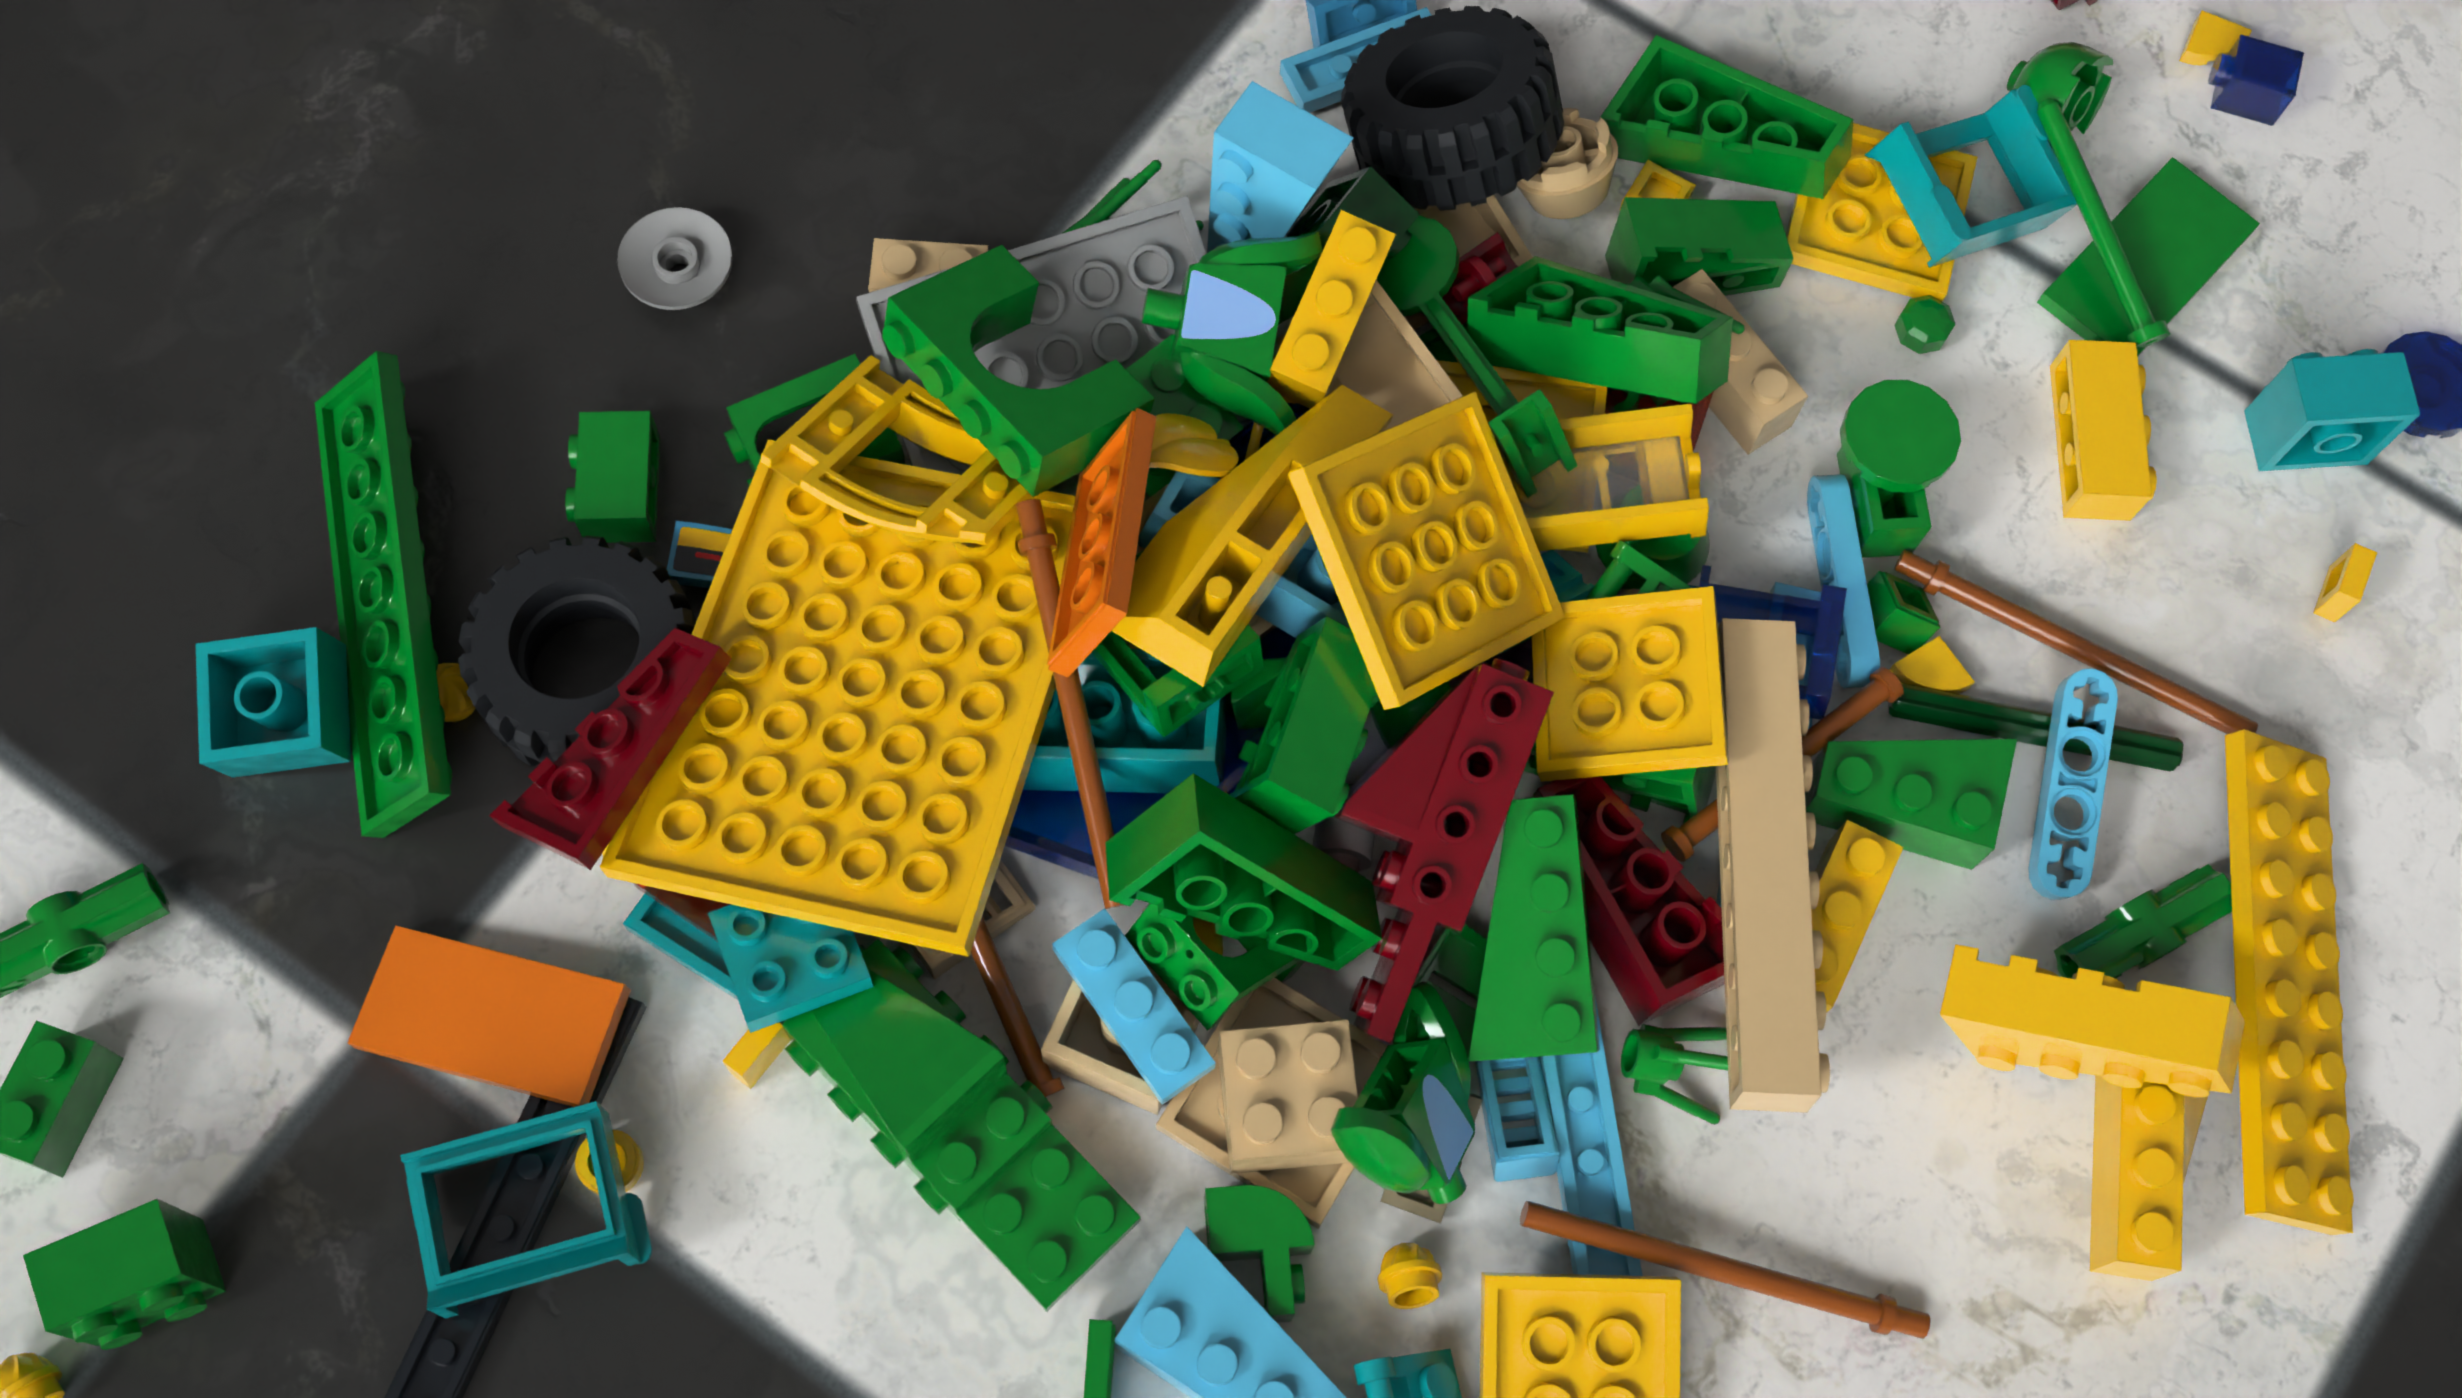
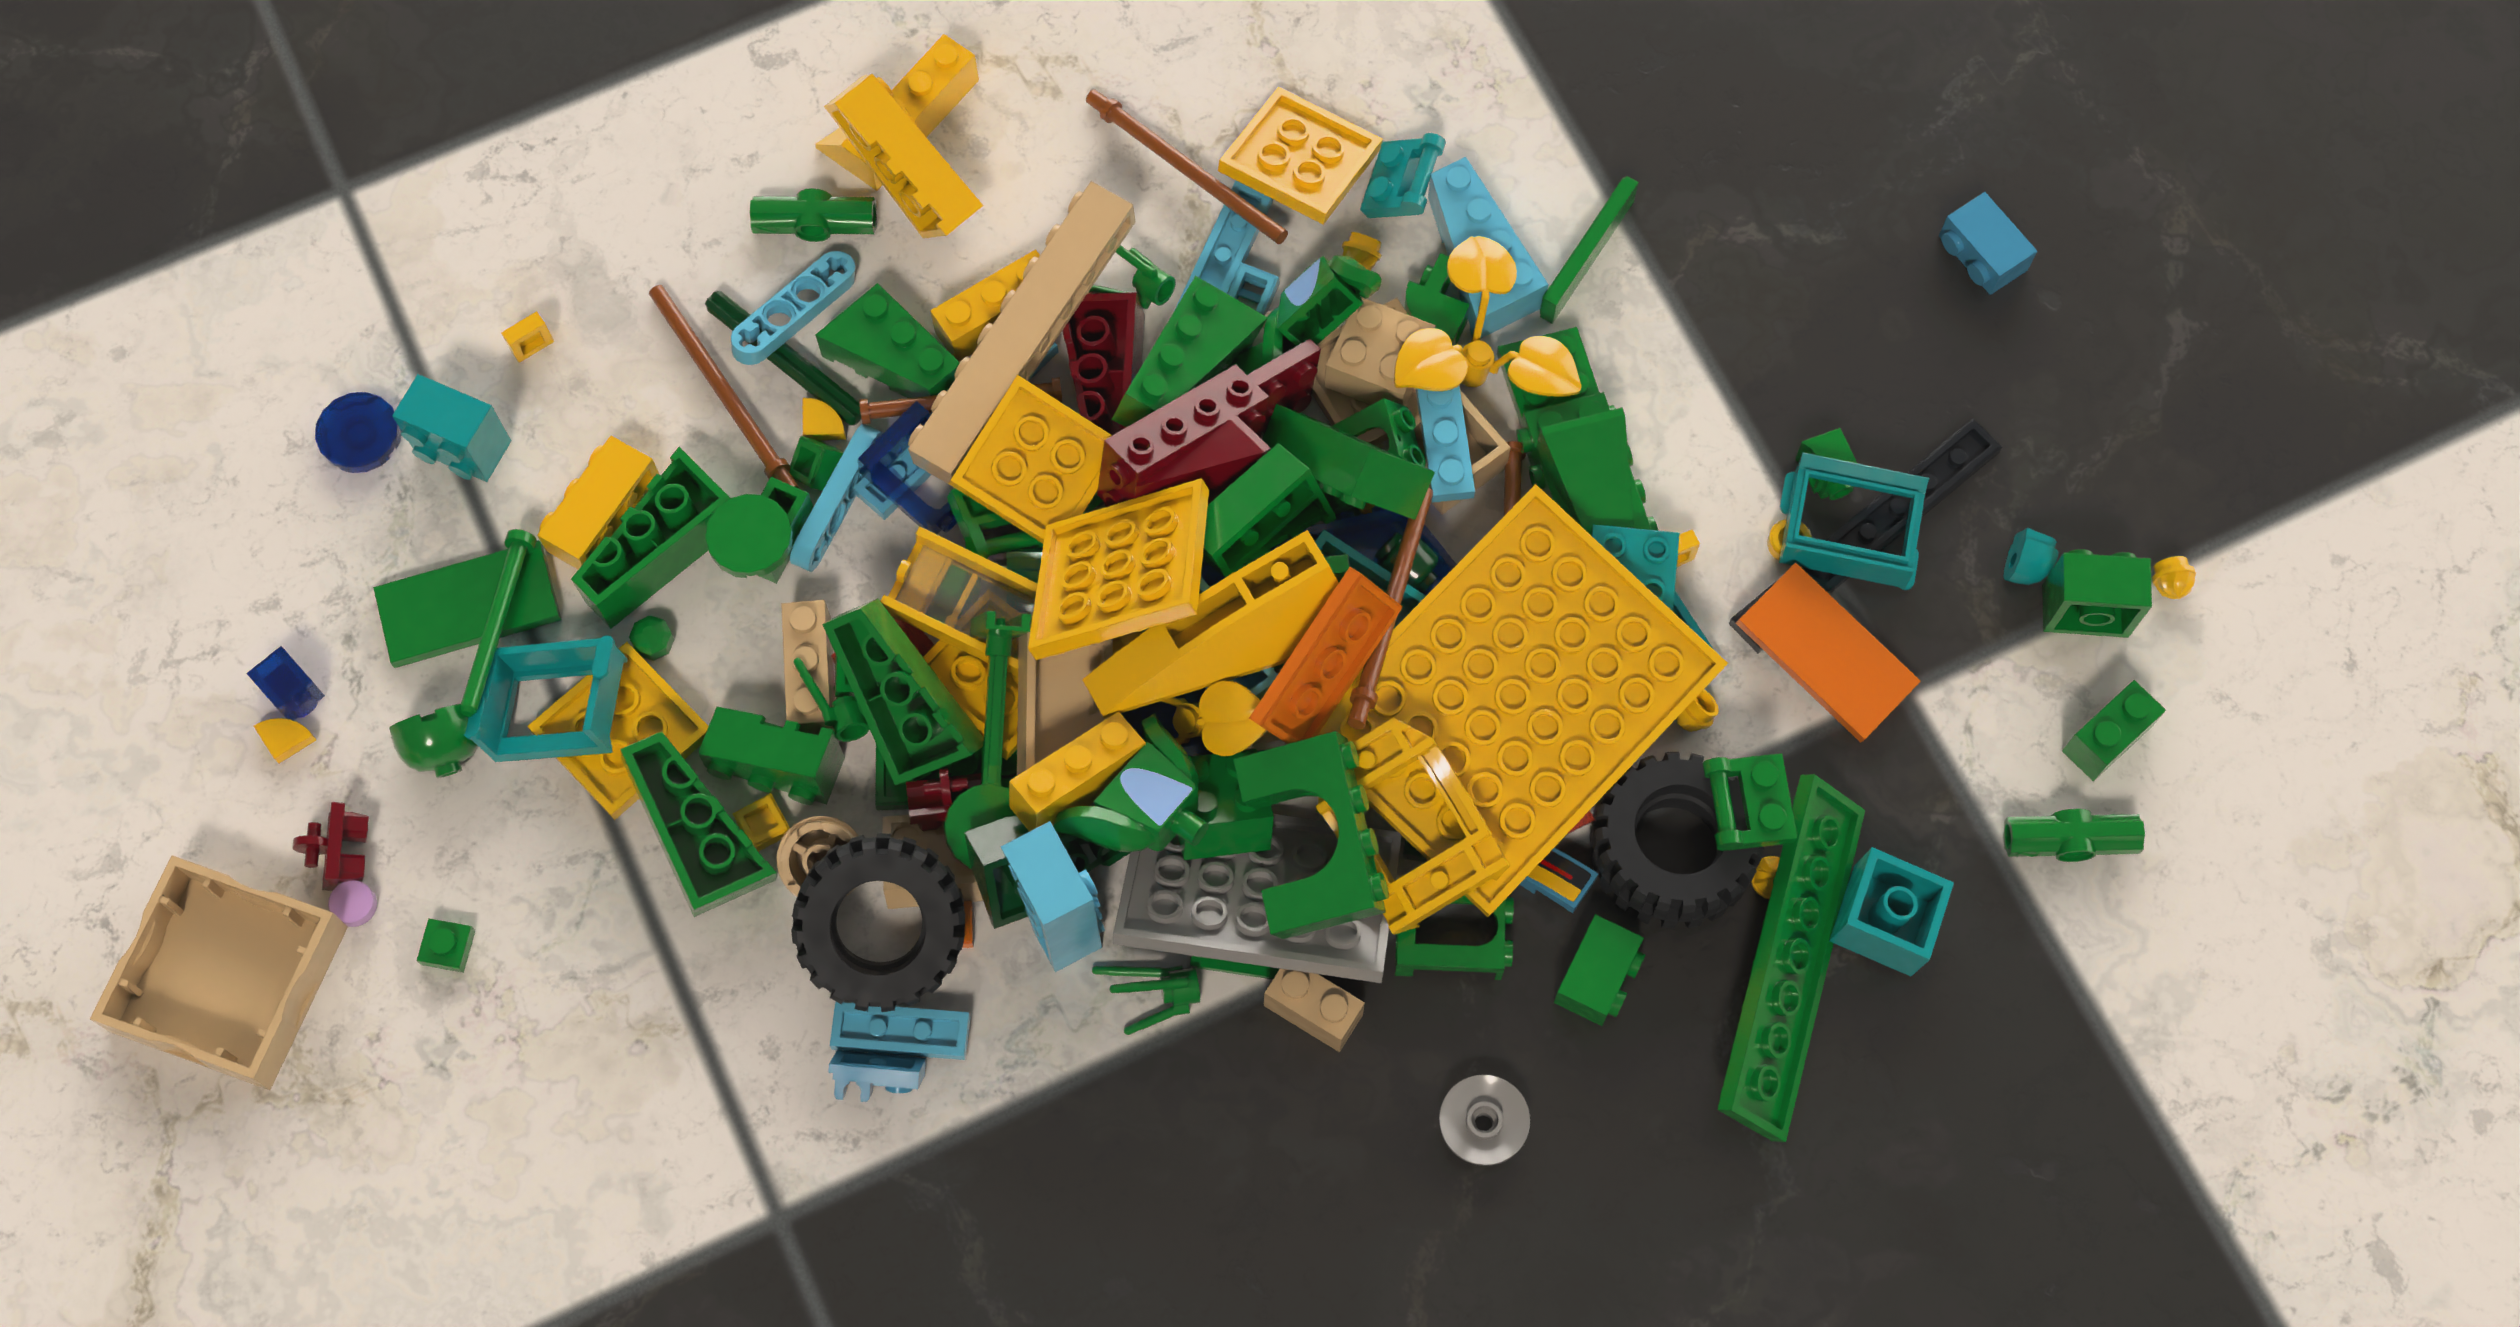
camera: 145 degrees left, 0 degrees up
(252, 1305) = (2030, 557): none -> teal piece
(478, 715) = (1764, 801): none -> green plate
(597, 1301) = (1831, 445): none -> green window
(599, 778) = (1698, 721): dark red wing -> none
(1054, 1190) = (1432, 362): none -> yellow plant
(1066, 815) = (1424, 563): none -> dark green head
(2008, 417) = (653, 541): none -> green wedge
(2287, 986) = (754, 150): yellow plate -> none

